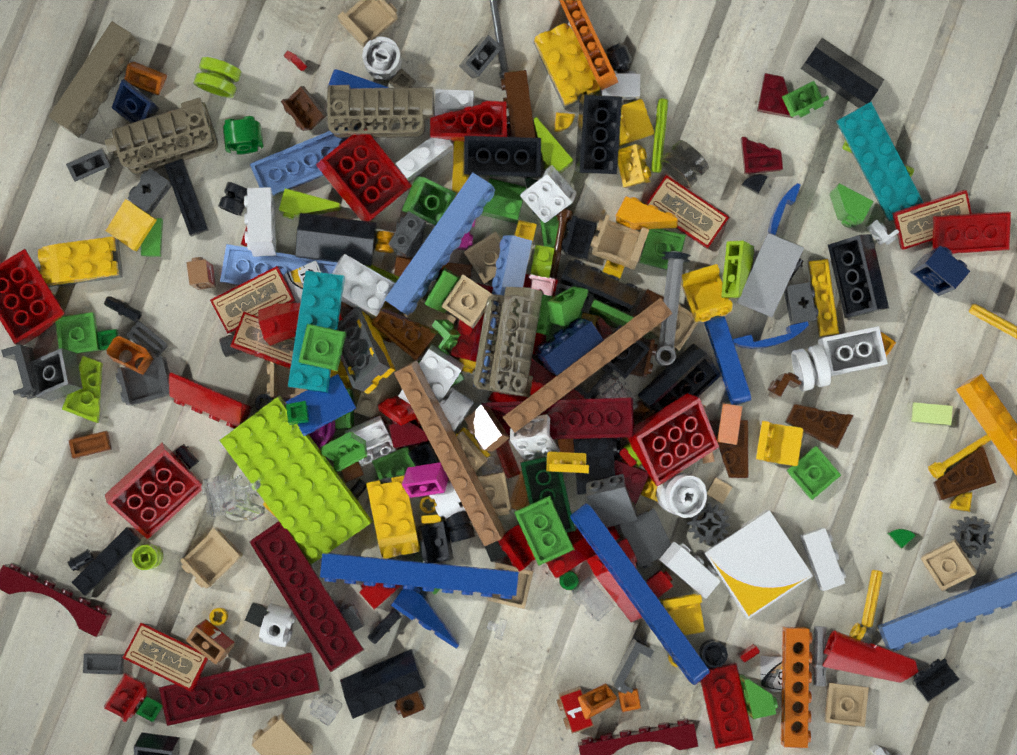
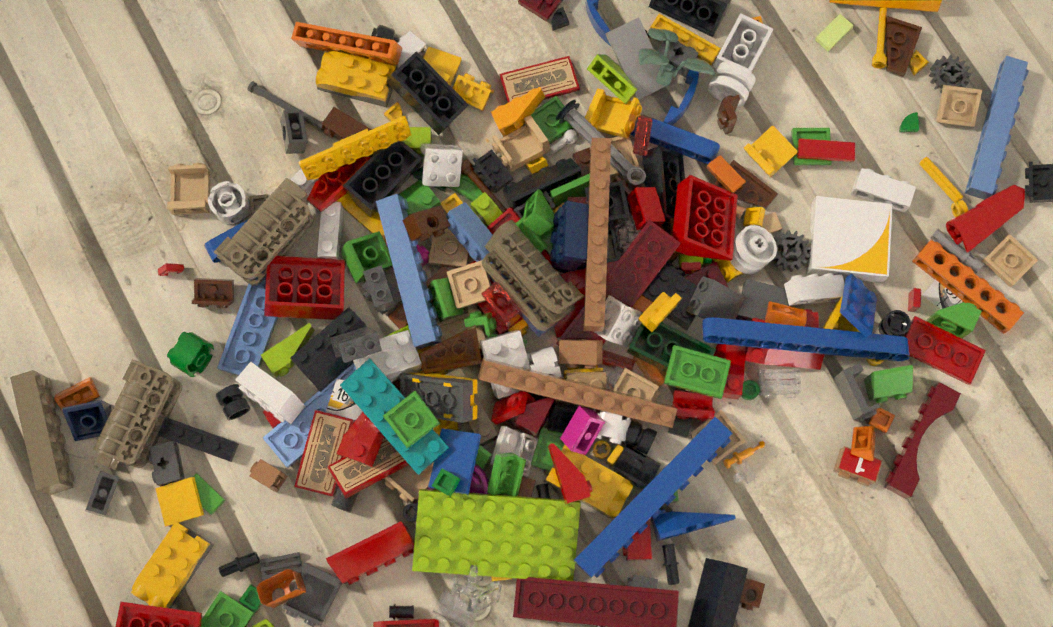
camera: 50 degrees left, 10 degrees down
(217, 77) = (128, 335): lime wheel -> none
(347, 255) = (356, 344): none -> dark grey panel
(379, 502) = (571, 480): none -> red slope
(384, 238) = (369, 315): light orange wheel -> none
(469, 339) = (502, 304): none -> clear red slope
(479, 220) = (426, 223): none -> reddish brown brick
(502, 117) = (354, 147): none -> yellow bracket
(507, 613) = (738, 457): none -> light orange piece
(644, 385) = (645, 206): none -> red brick
(647, 563) = (785, 315): none -> orange slope
(659, 136) = (466, 56): lime axle -> none
(659, 274) = (570, 137): none -> white bar
(660, 685) = (889, 384): none -> bright green slope
(684, 163) = (503, 52): clear smoke wheel -> none
(703, 613) = (858, 305): none -> blue plate
(704, 332) = (642, 135): none -> clear red slope
(713, 474) = (754, 216): none -> yellow tile
(771, 289) = (666, 71): none -> sand green plant
(817, 487) = (826, 150): none -> red tile
(820, 424) = (779, 113): reddish brown wing -> none

